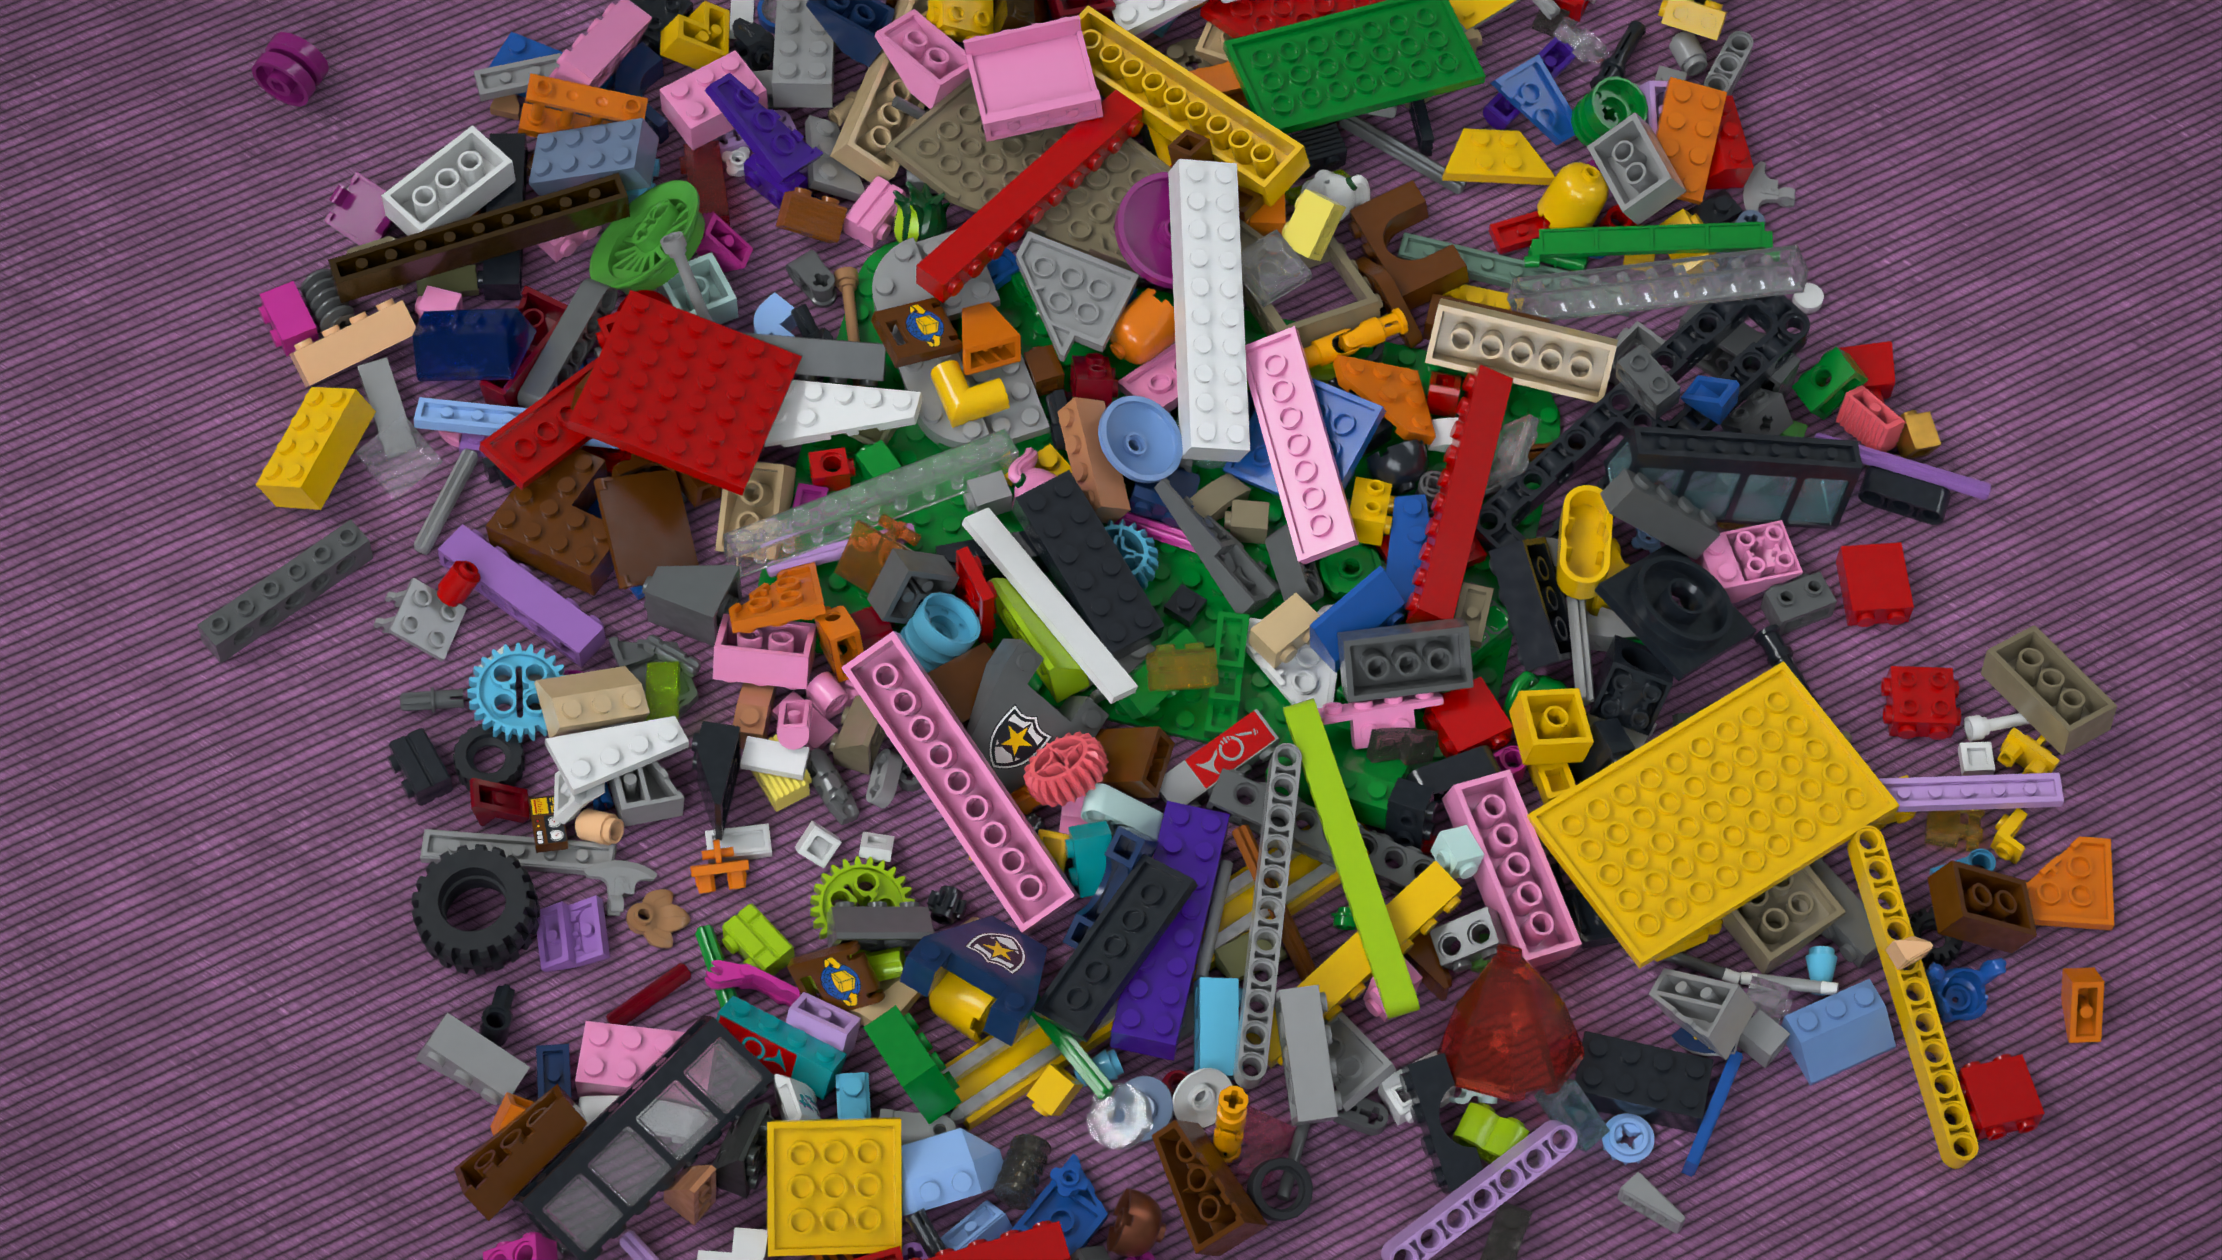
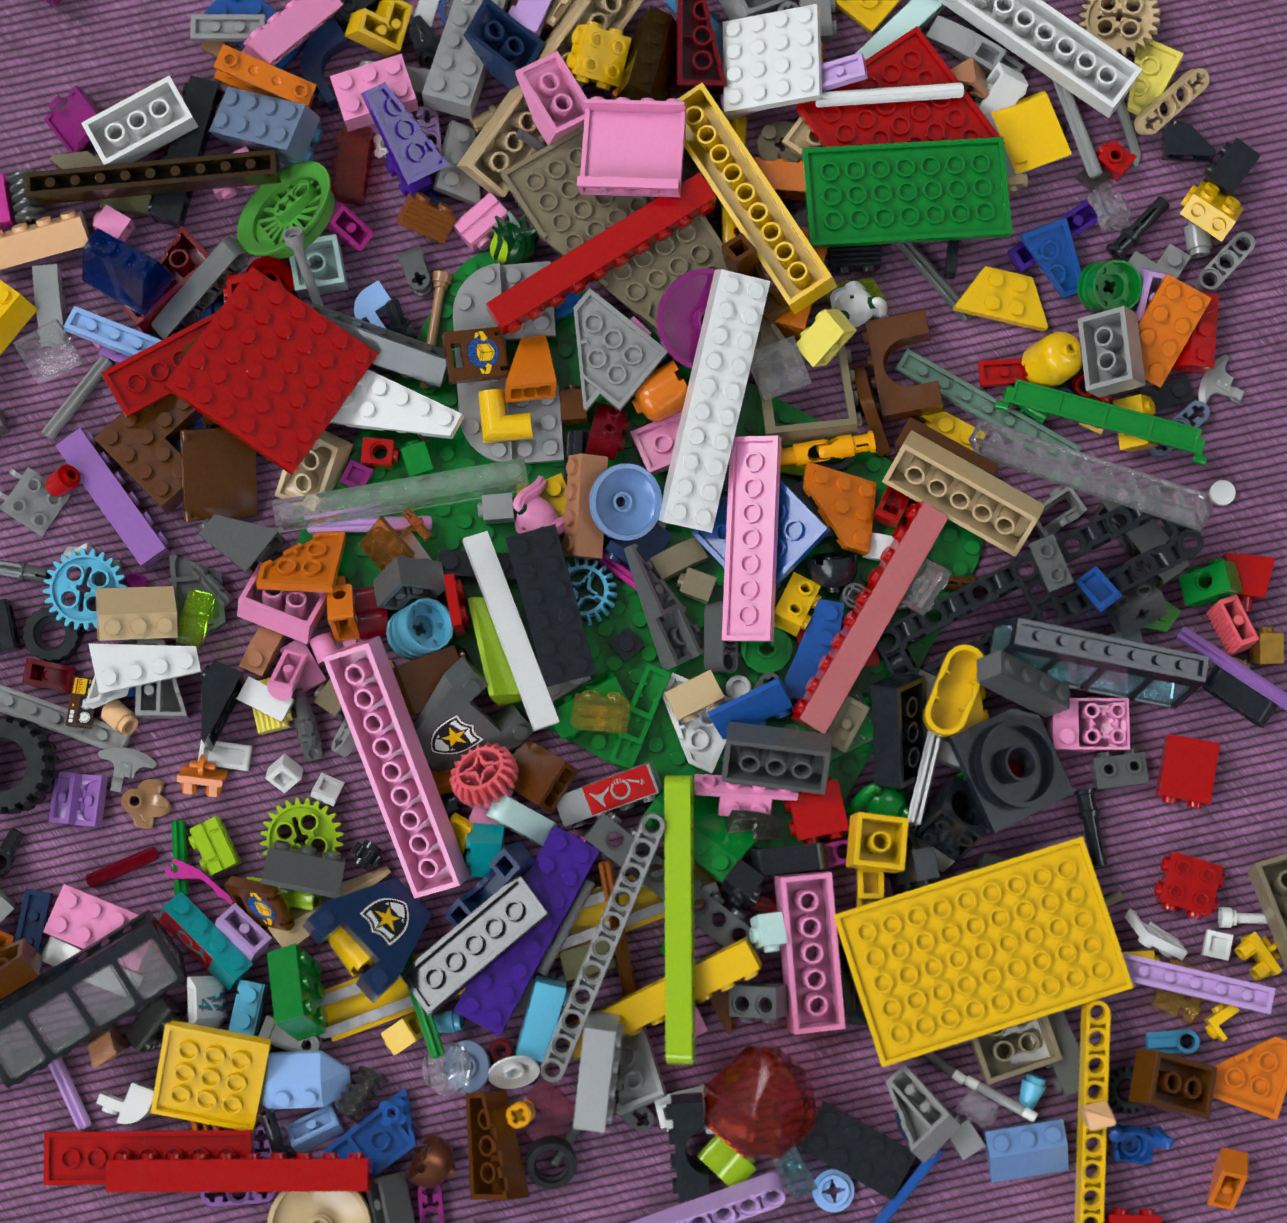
camera: 25 degrees right, 20 degrees up
(1900, 762) = (1153, 935): none -> white wing

